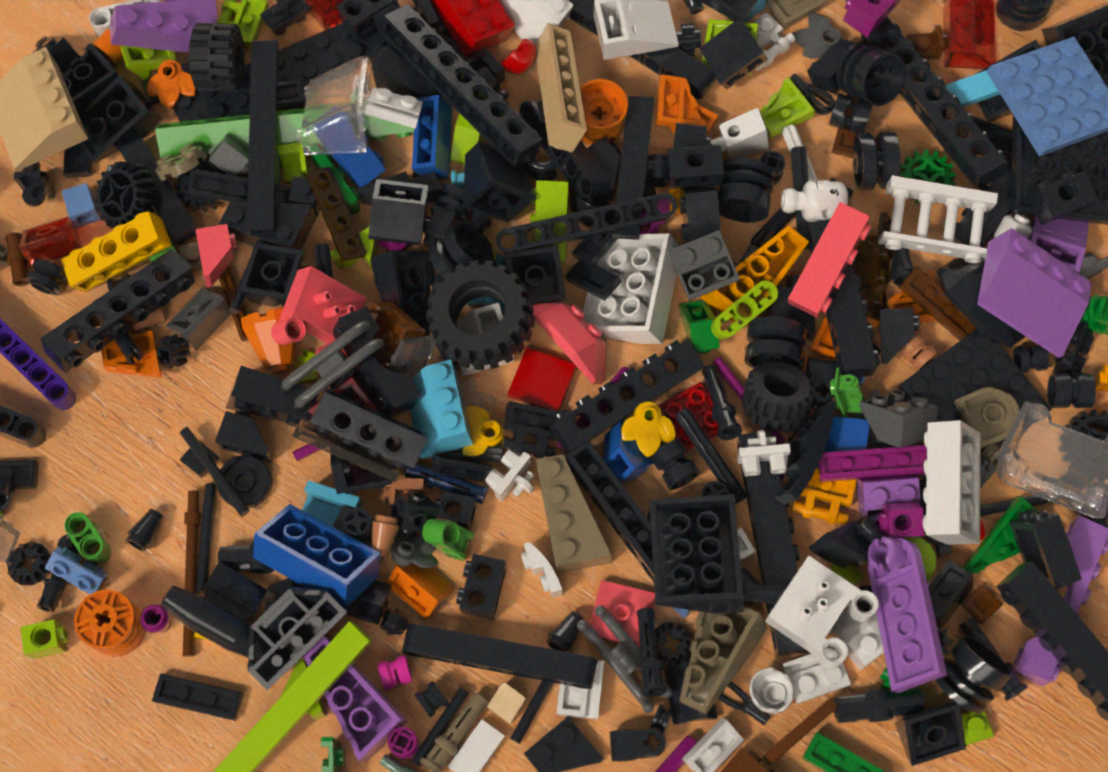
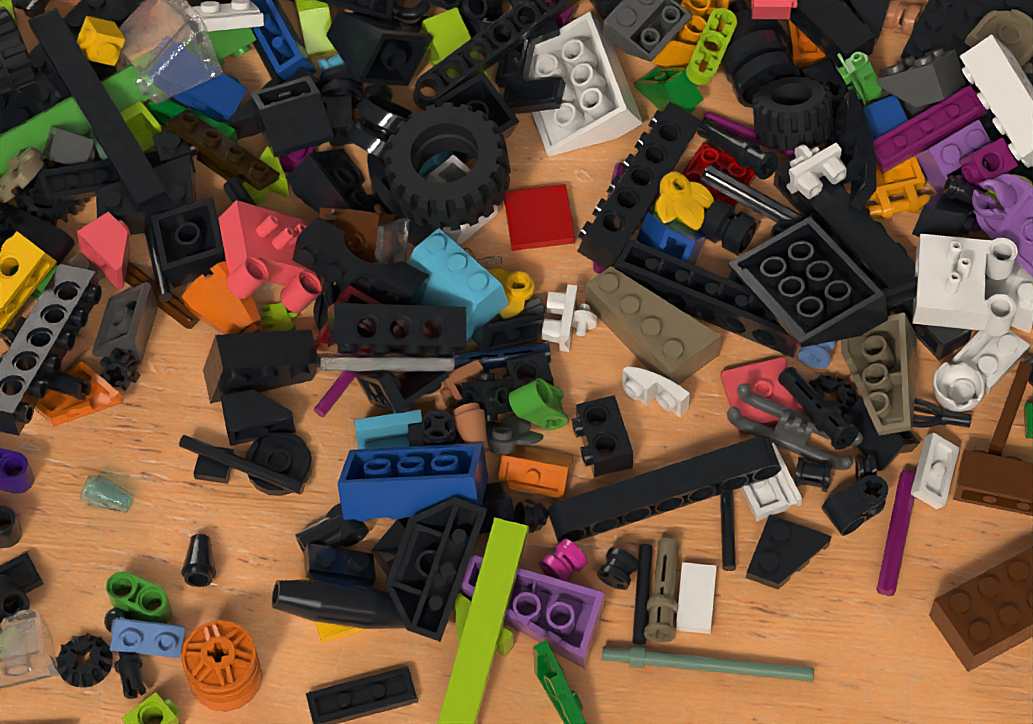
camera: 30 degrees left, 10 degrees down
(111, 443) = (105, 494): none -> clear light blue cone
(152, 615) = (271, 636): magenta cone -> none
(192, 519) = (246, 528): reddish brown bar -> none
(206, 536) = (267, 530): black bar -> none
(296, 81) = (100, 40): none -> yellow brick
(331, 363) = (315, 287): dark grey piece -> none
(407, 744) = (616, 632): magenta wheel -> none
(507, 702) = (698, 533): tan slope -> none
(531, 421) = (555, 256): black plate -> none
(565, 633) = (717, 433): black cone -> none
(575, 337) = (551, 156): coral wedge -> none
(619, 701) = (813, 474): none -> black bush

